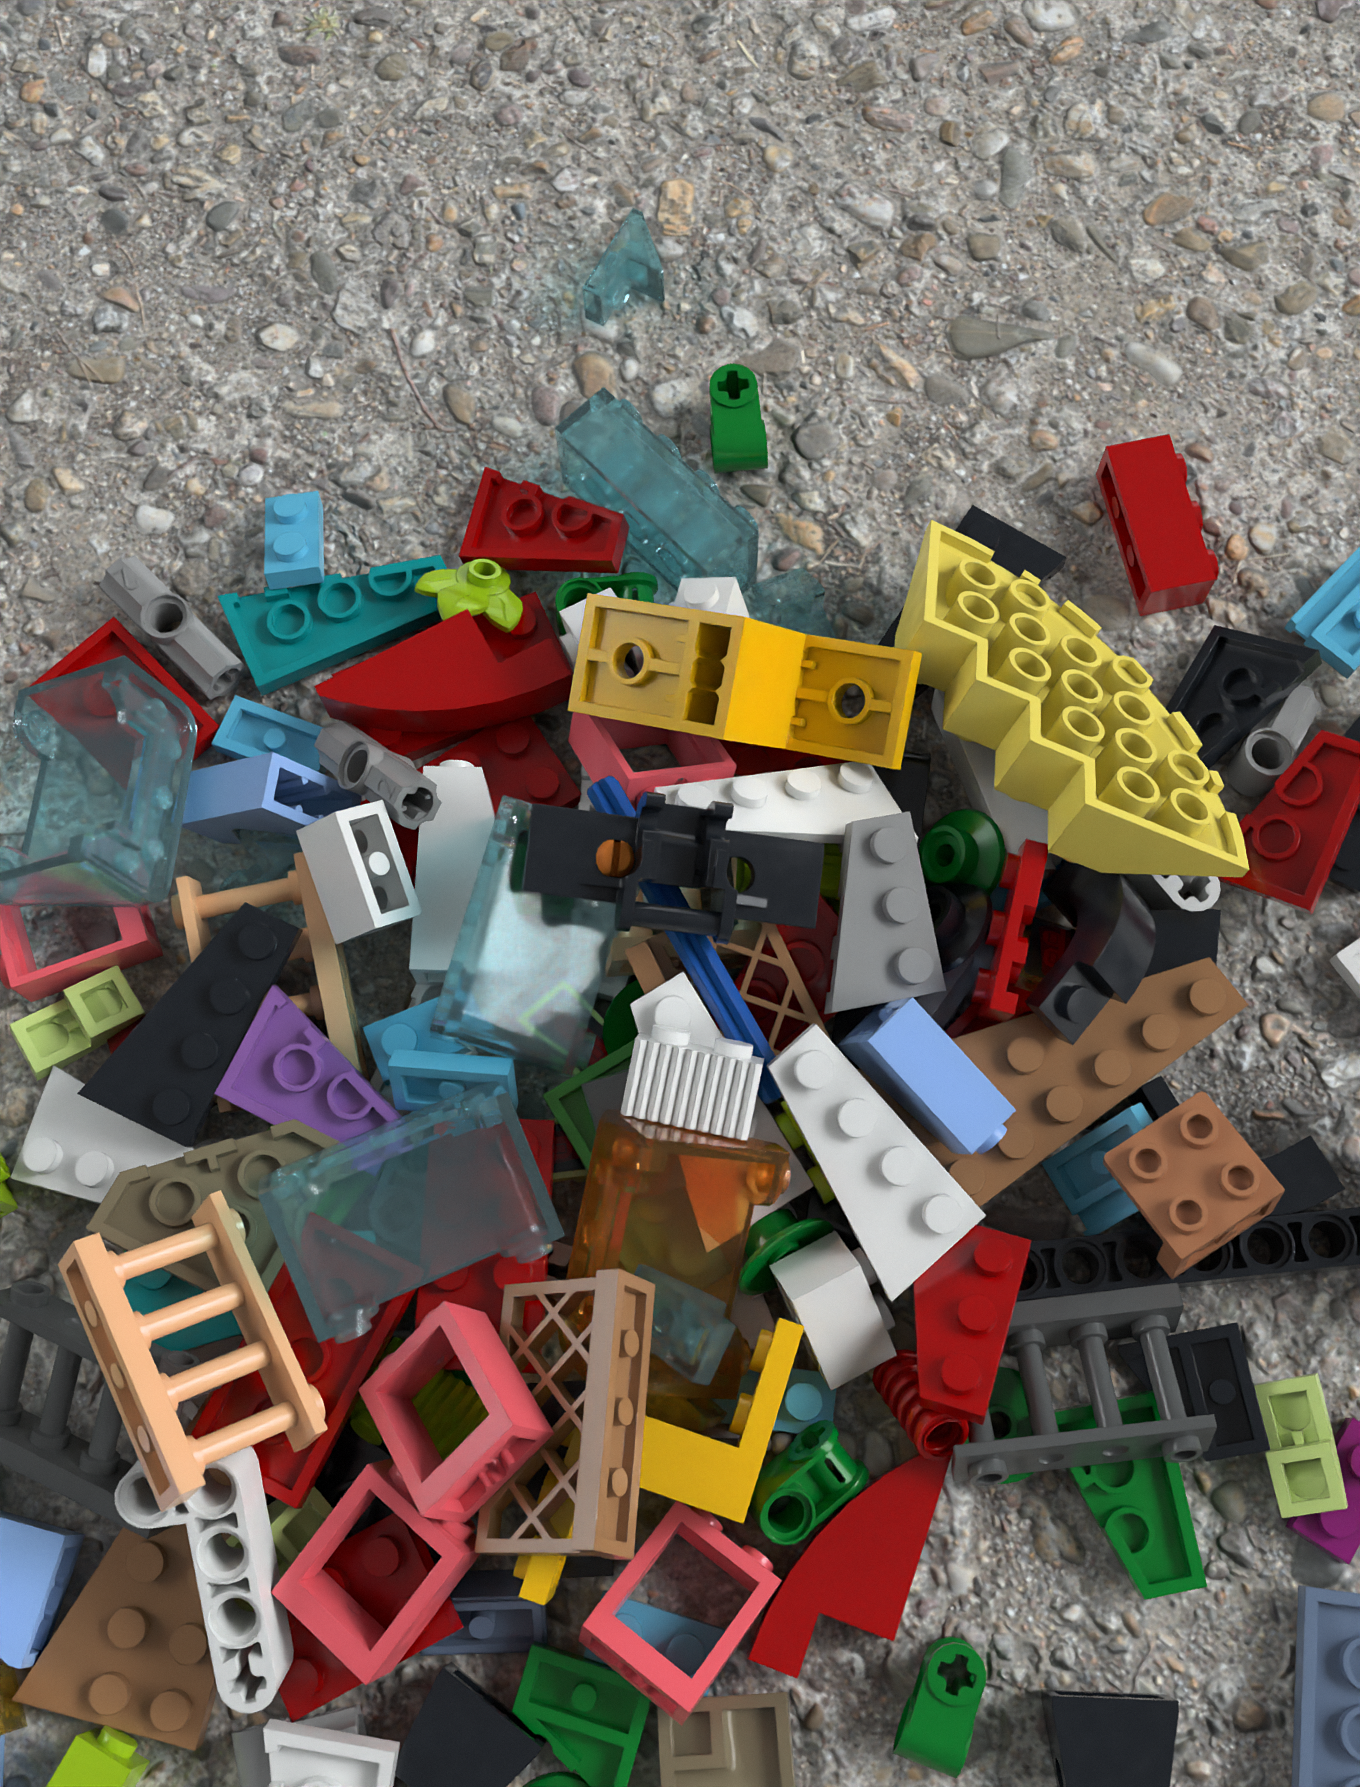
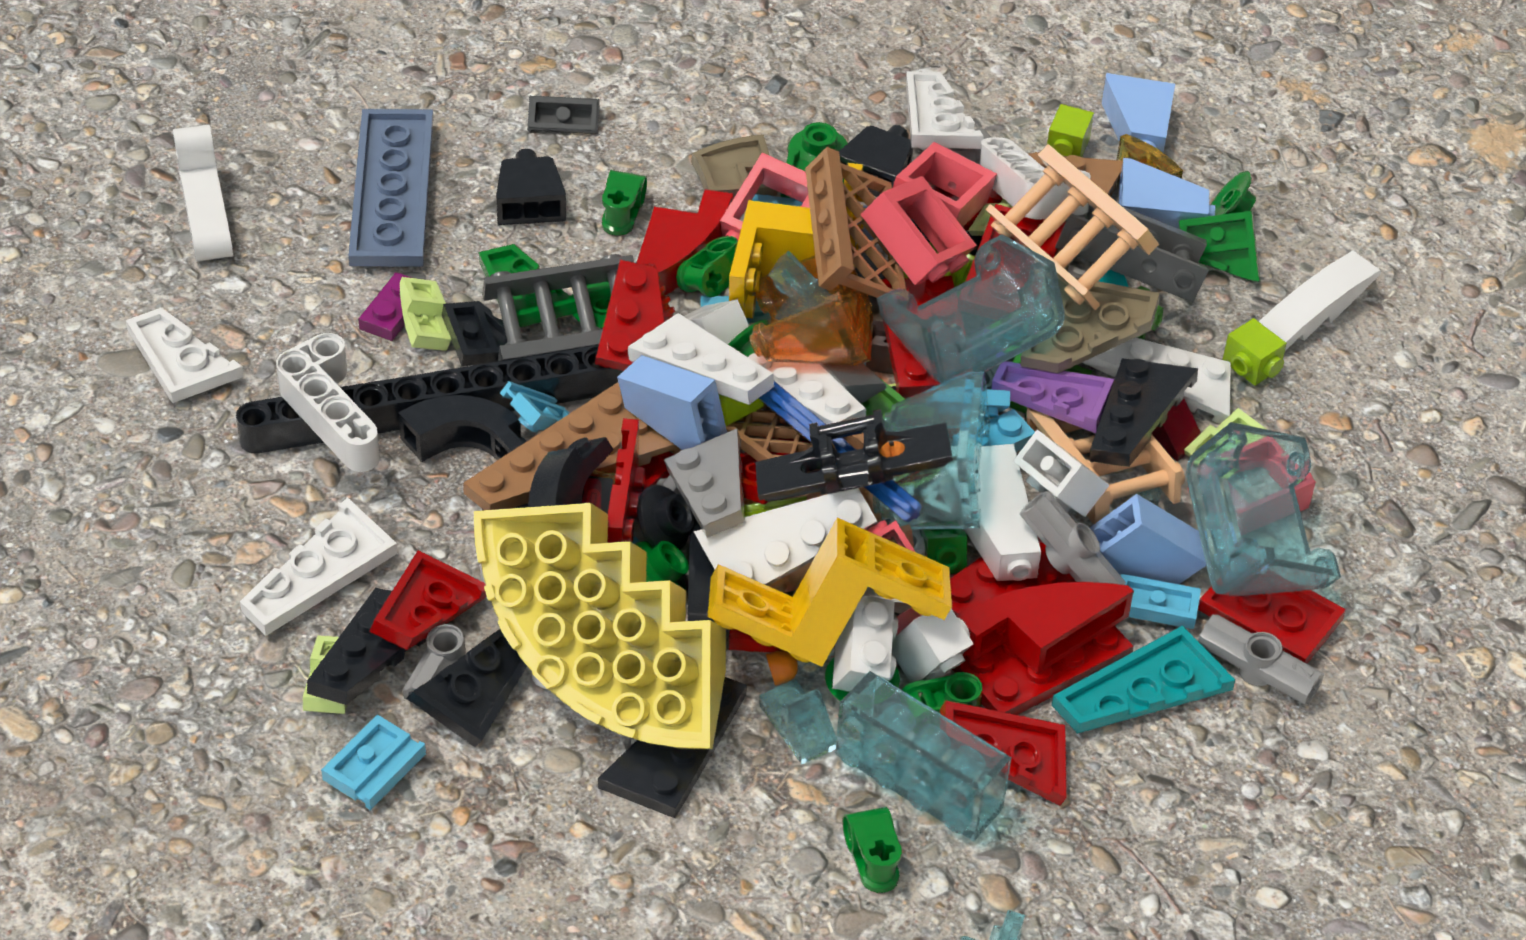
camera: 165 degrees right, 25 degrees down
(294, 540) = (1194, 726): medium azure plate -> none
(474, 586) = (1045, 681): lime plate -> none
(692, 1083) = (817, 364): white brick -> none
(1156, 525) = (529, 804): red brick -> none
(1193, 1181) = (499, 379): nougat bracket -> none

